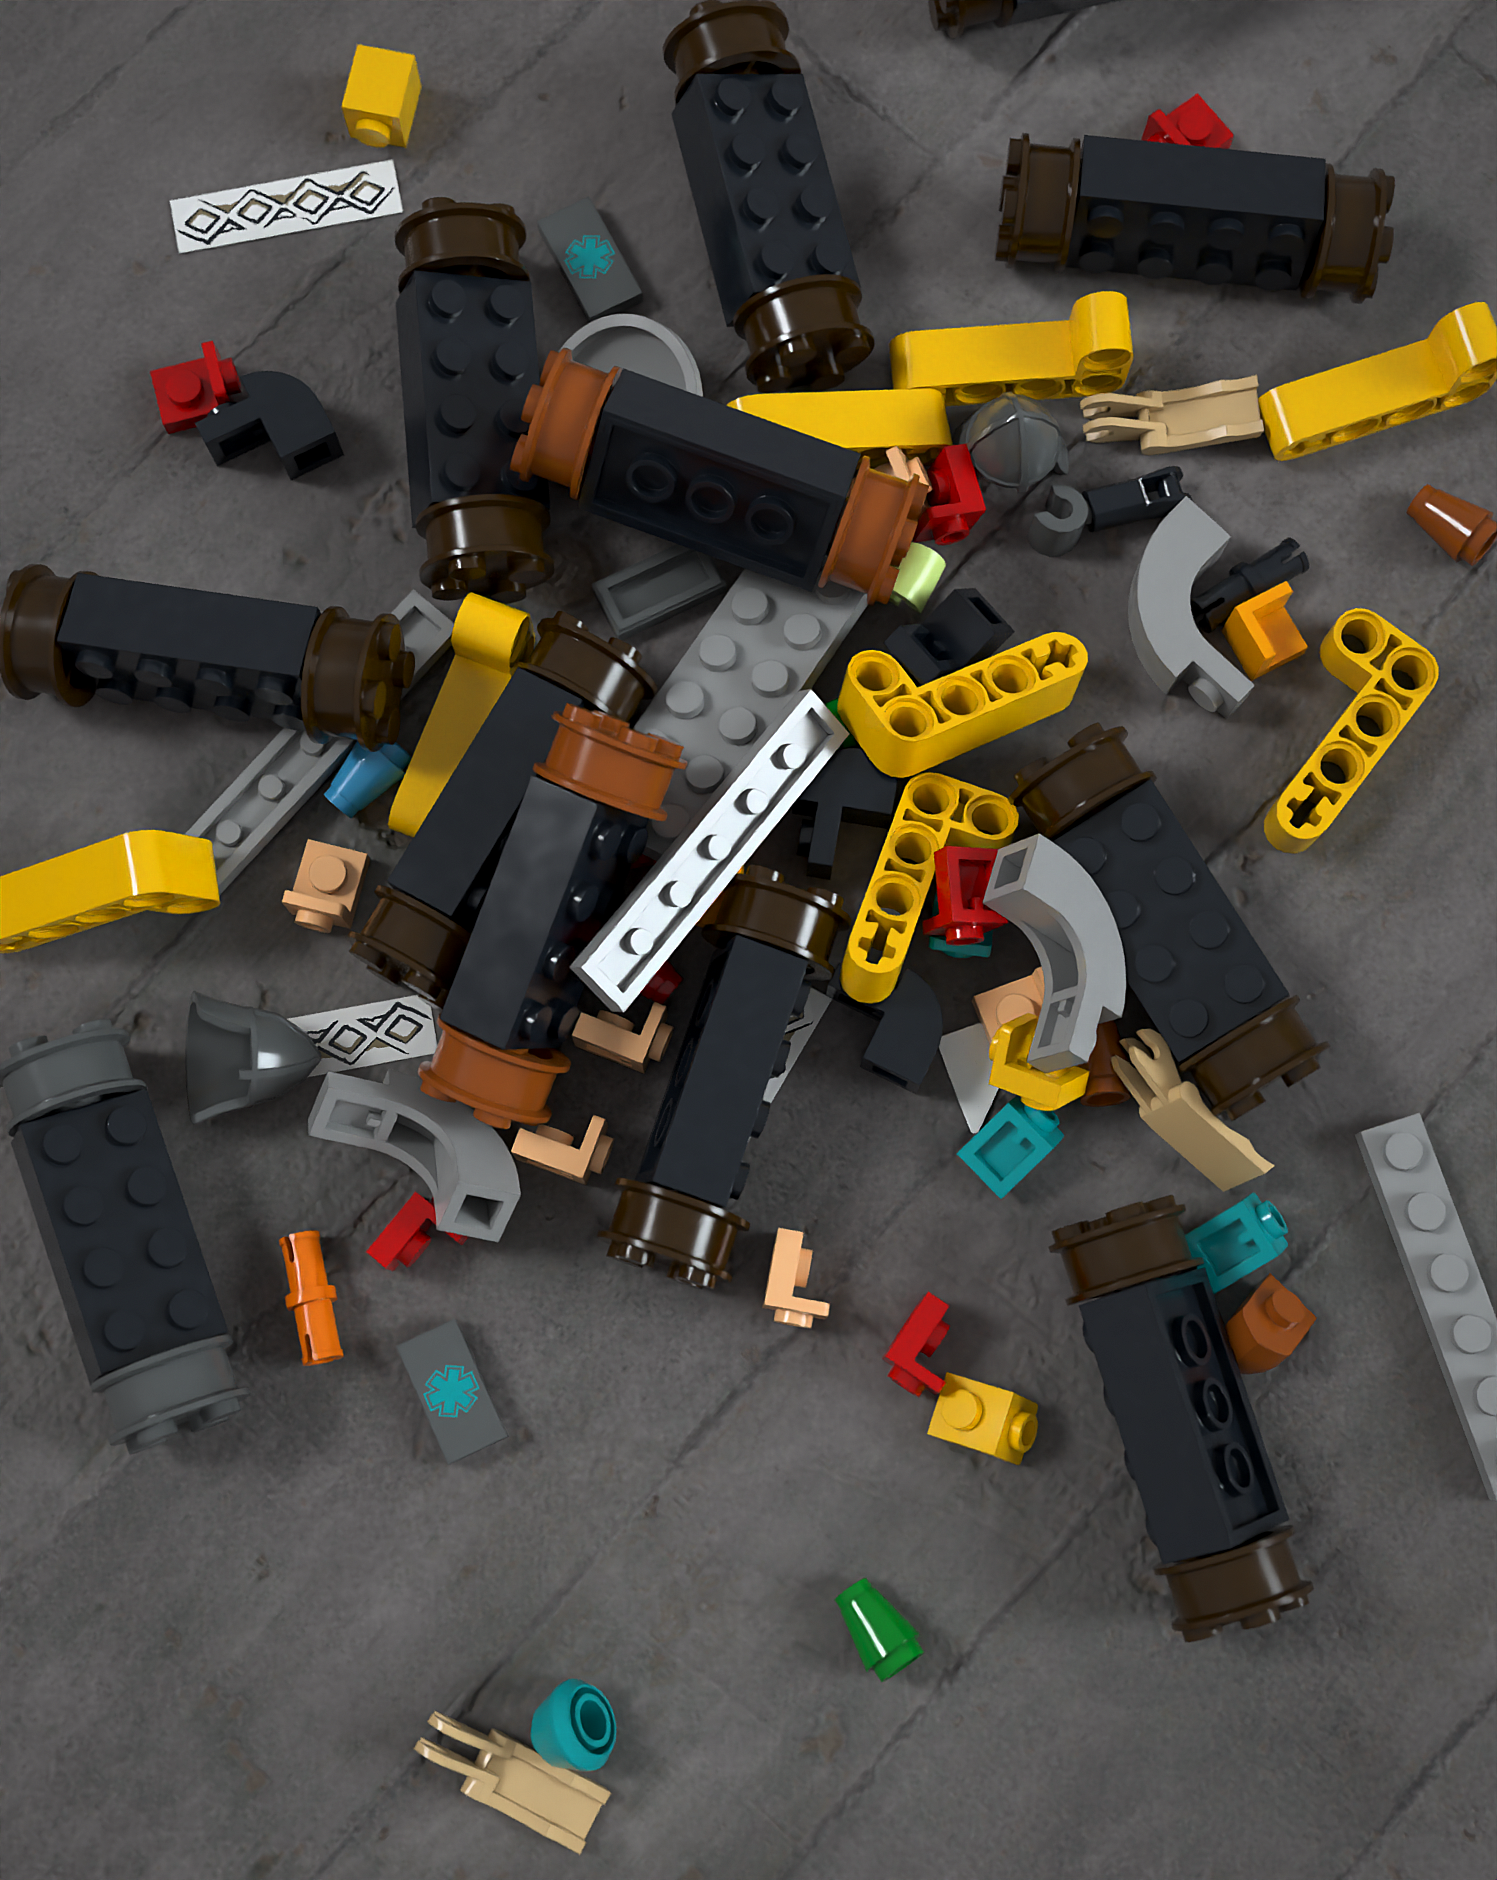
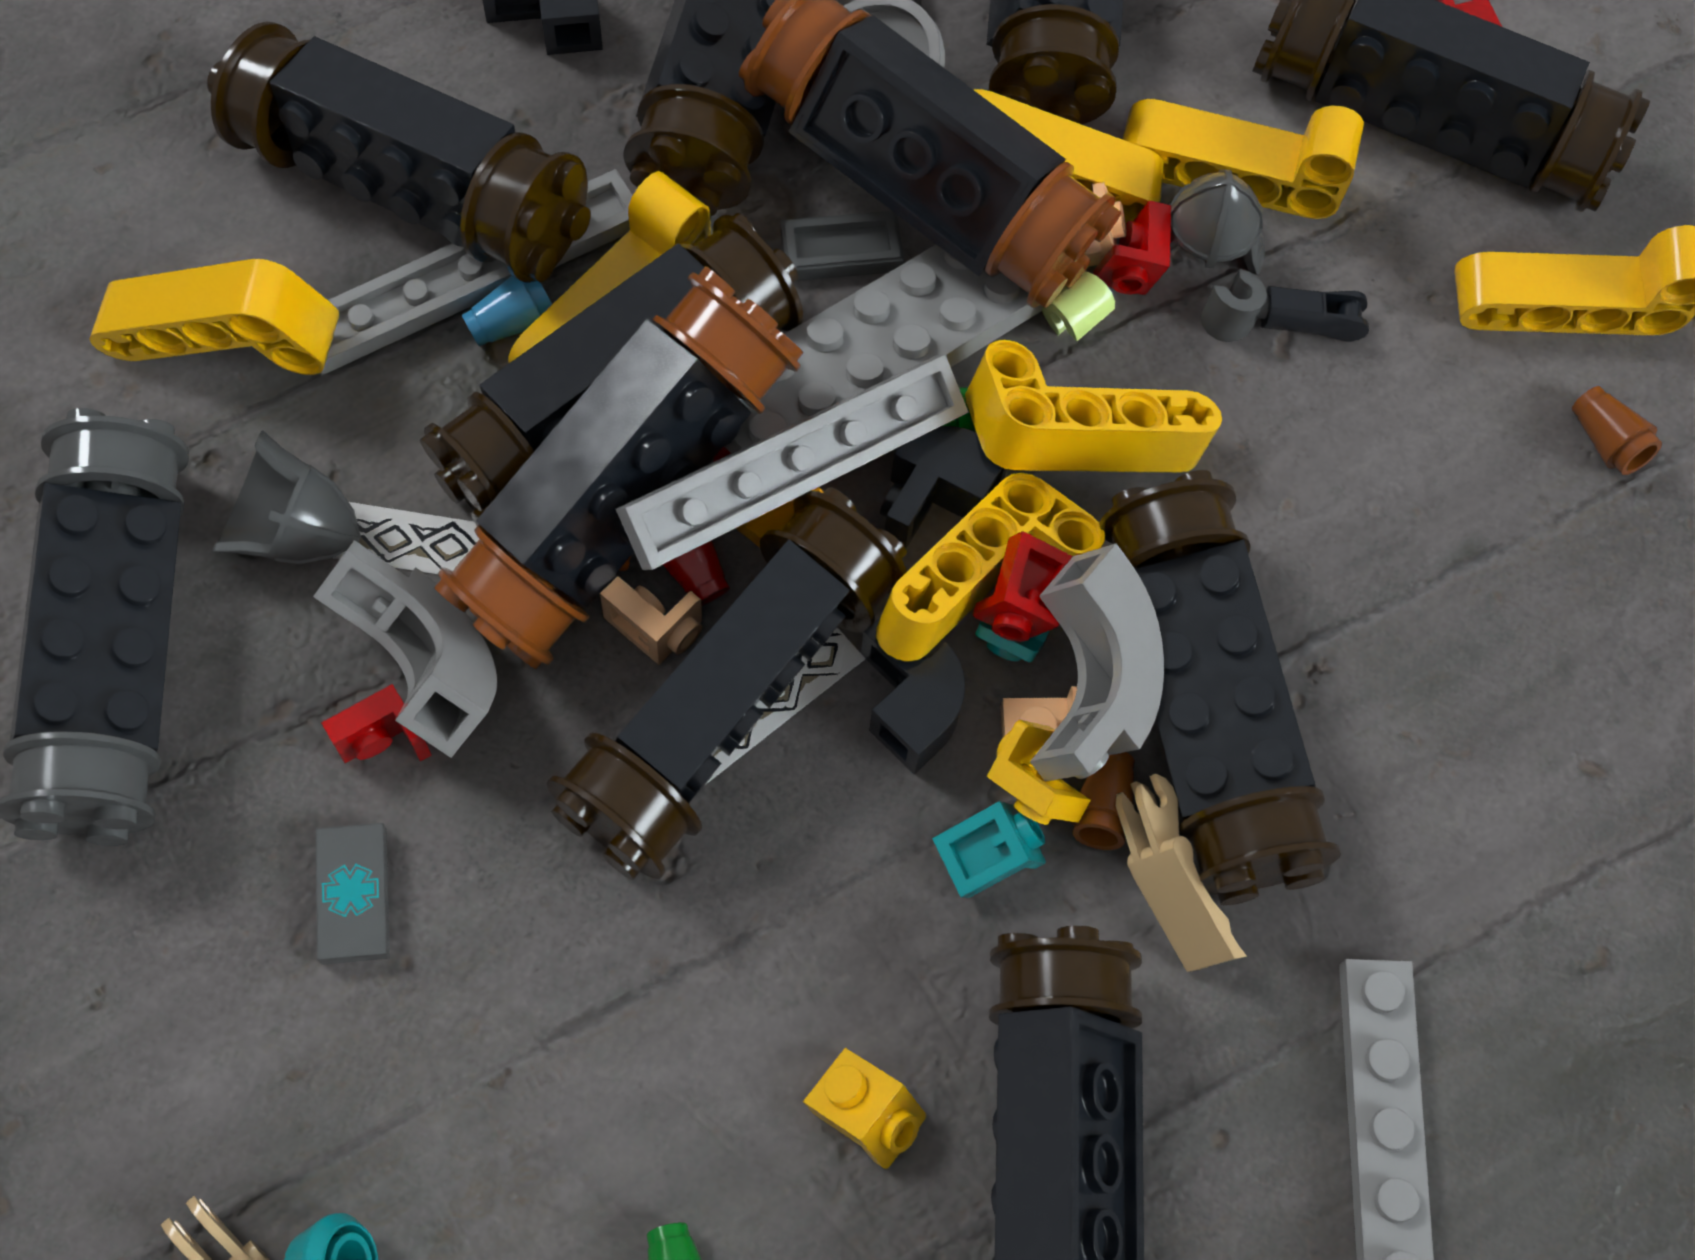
camera: 15 degrees right, 10 degrees down
(311, 1298) = (254, 756): orange pin -> none
(327, 886) = (429, 394): light nougat bracket -> none
(553, 1152) = (543, 703): light nougat bracket -> none
(788, 1269) = (722, 889): light nougat bracket -> none
(922, 1334) = (830, 997): red bracket -> none
(950, 638) = (1099, 361): black brick -> none
(969, 1070) = (972, 759): white sticker -> none
(1162, 616) = (1303, 438): light grey arch -> none
(1176, 418) = (1376, 257): tan arm -> none
(1238, 1240) = (1186, 1021): teal bracket -> none
(1247, 582) = (1398, 420): black pin -> none
(1264, 632) = (1398, 463): light orange panel -> none
(1267, 1326) = (1186, 1117): dark orange plate -> none
(1345, 743) = (1445, 588): yellow beam -> none

